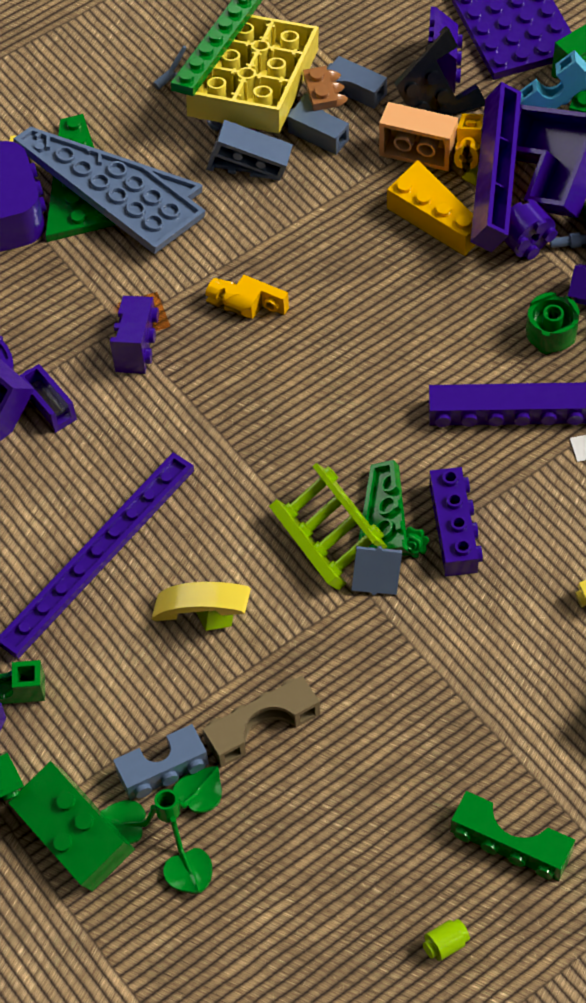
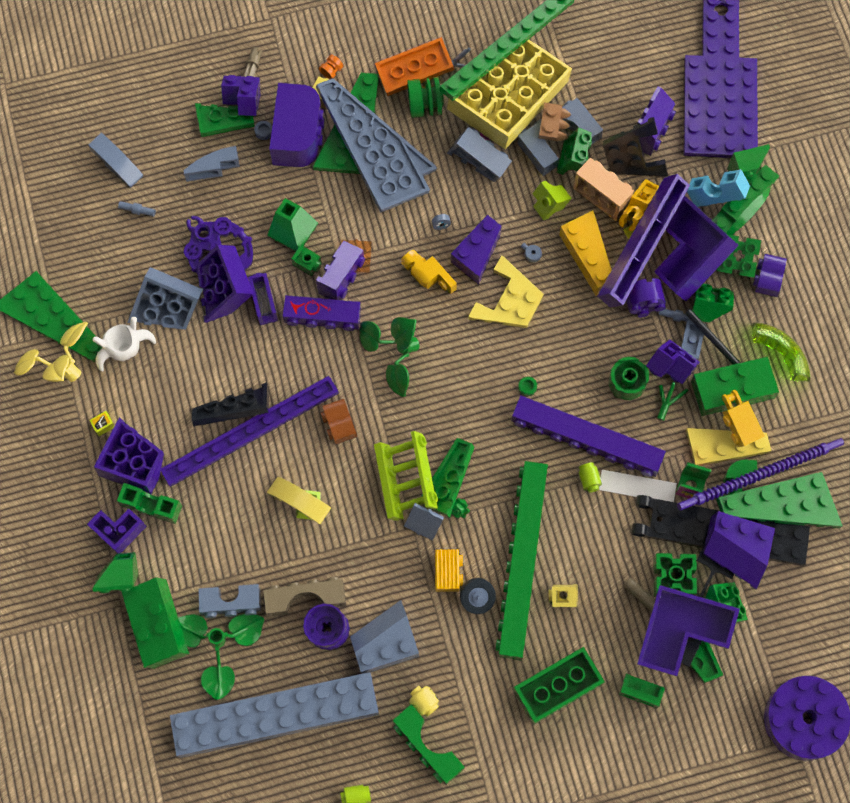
camera: 20 degrees right, 15 degrees up
(20, 121) = (330, 68): none -> orange wheel
(48, 304) = (291, 225): none -> green slope
(59, 534) = (244, 405): none -> black wing
(84, 337) = (310, 266): none -> green brick
(124, 90) = (417, 63): none -> orange plate
(131, 386) = (322, 312): none -> dark purple brick
(153, 114) = (424, 97): none -> green wheel
(210, 499) = (339, 421): none -> dark orange brick
(235, 239) = (441, 222): none -> sand blue tile
(251, 353) = (402, 331): none -> green plant
(286, 881) = (274, 715): none -> sand blue brick
(293, 253) = (476, 249): none -> dark purple wedge
(299, 729) = (325, 615): none -> dark purple wheel
(359, 170) = (550, 199): none -> lime brick
(363, 109) = (574, 151): none -> green plate
(364, 236) = (532, 249): none -> sand blue piece
(371, 296) = (516, 303): none -> light yellow wing
(394, 734) = (385, 641): none -> sand blue wedge
(430, 376) = (527, 386): none -> green tile
(434, 619) = (447, 570): none -> yellow brick
(454, 521) = (492, 504): dark purple brick -> none
(480, 782) = (424, 700): none -> light yellow head
(488, 633) = (477, 596): none -> black wheel
(525, 574) = (523, 559): none -> green brick
(560, 448) = (589, 477): none -> lime brick

